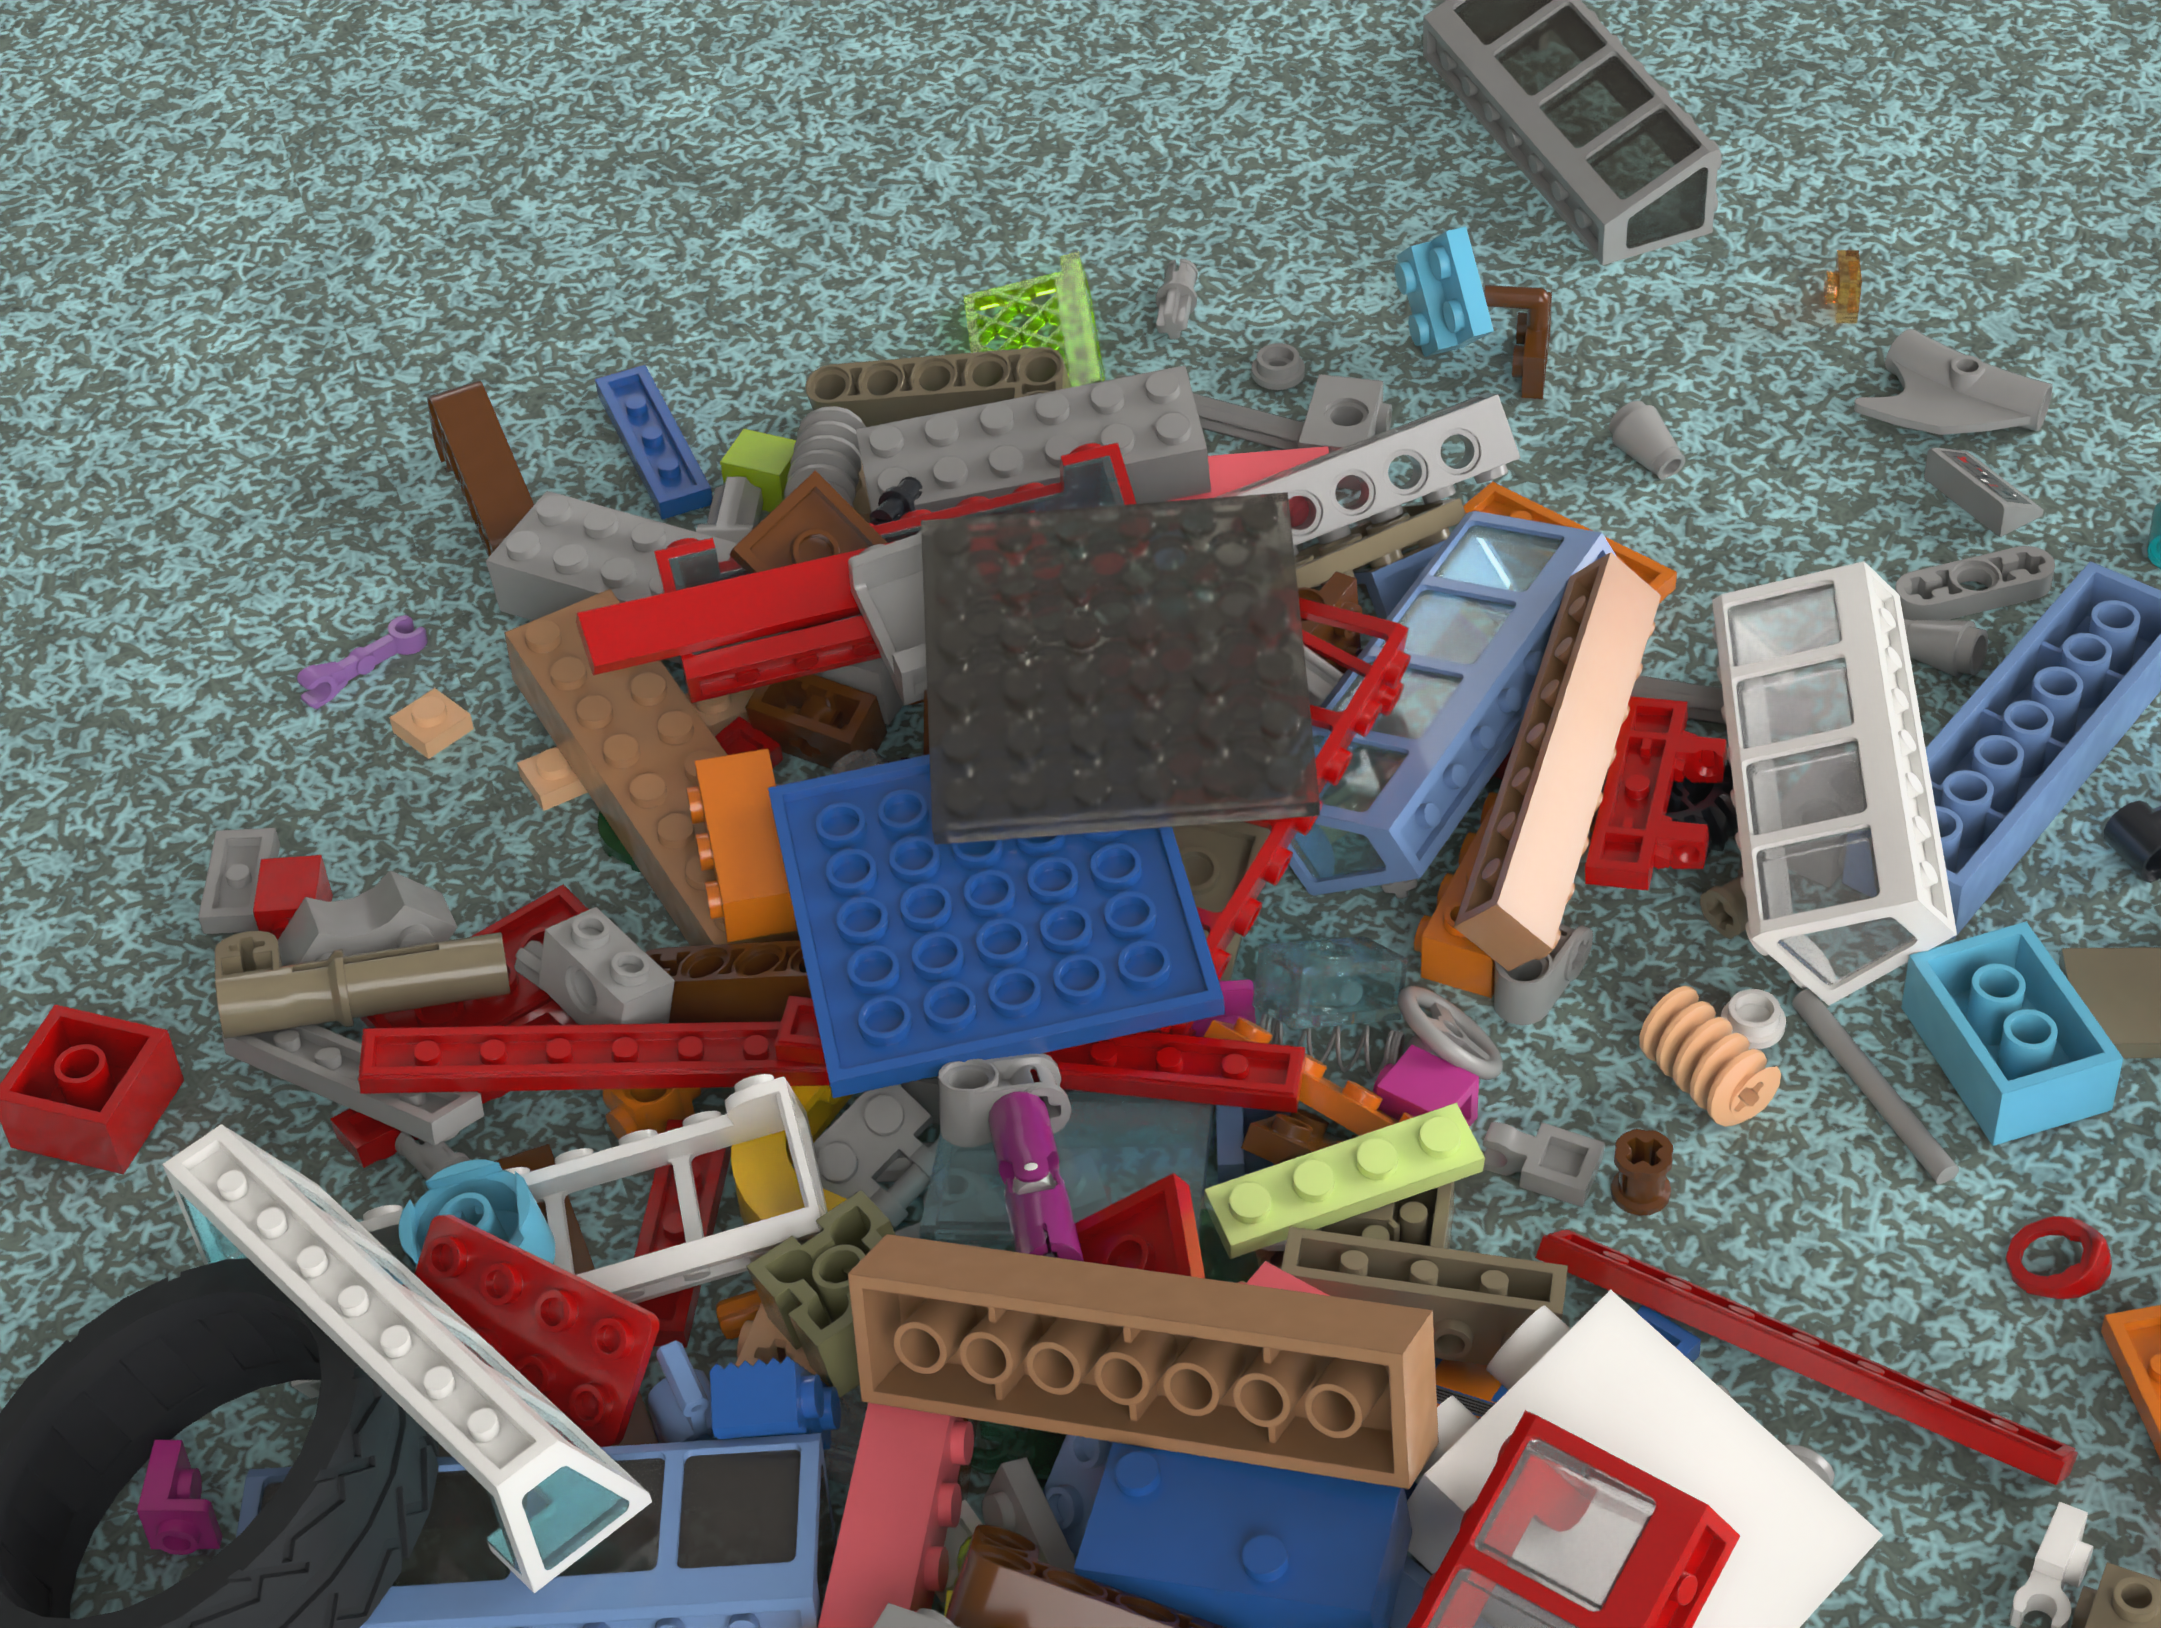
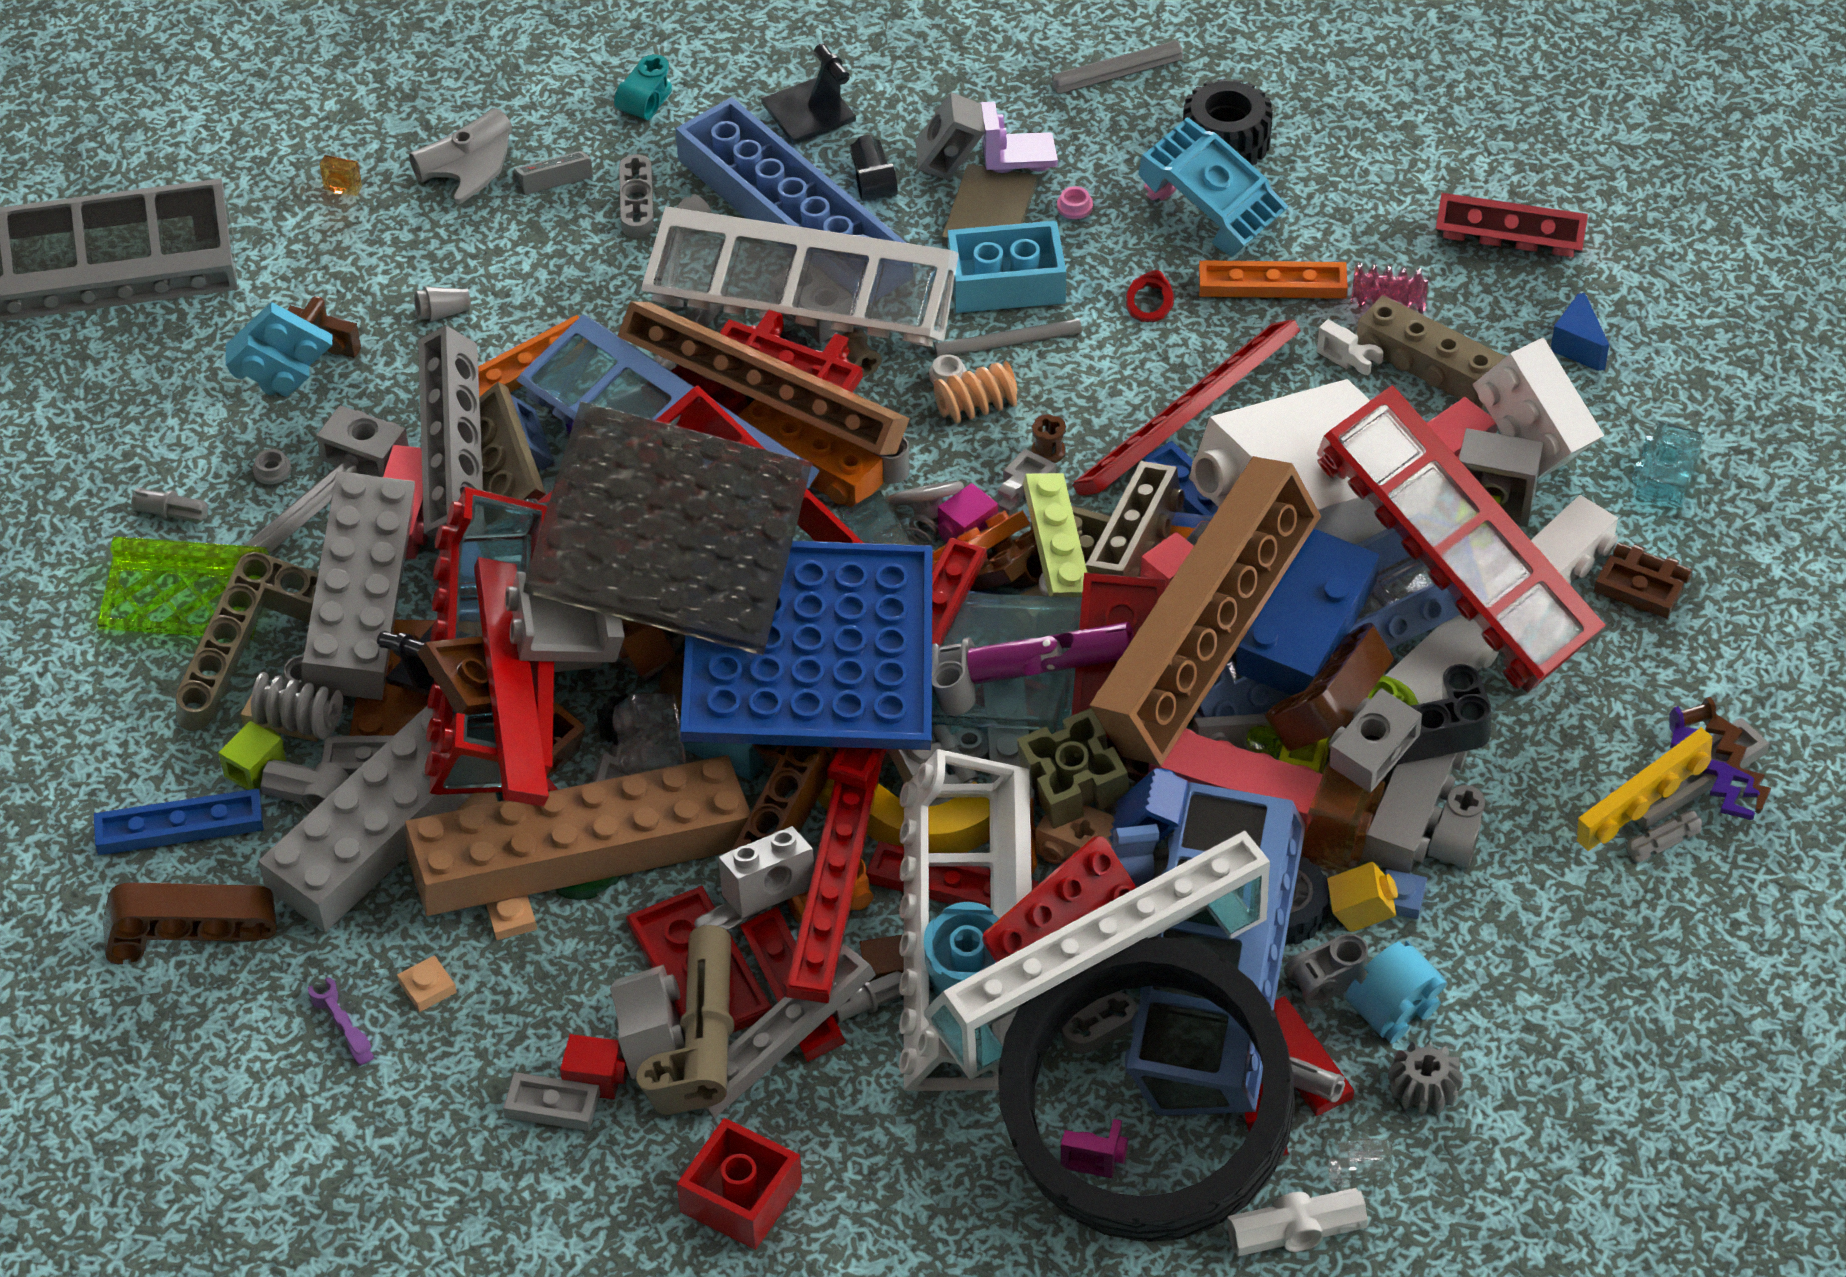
camera: 80 degrees left, 5 degrees up
(741, 845) = (690, 772): orange brick -> none

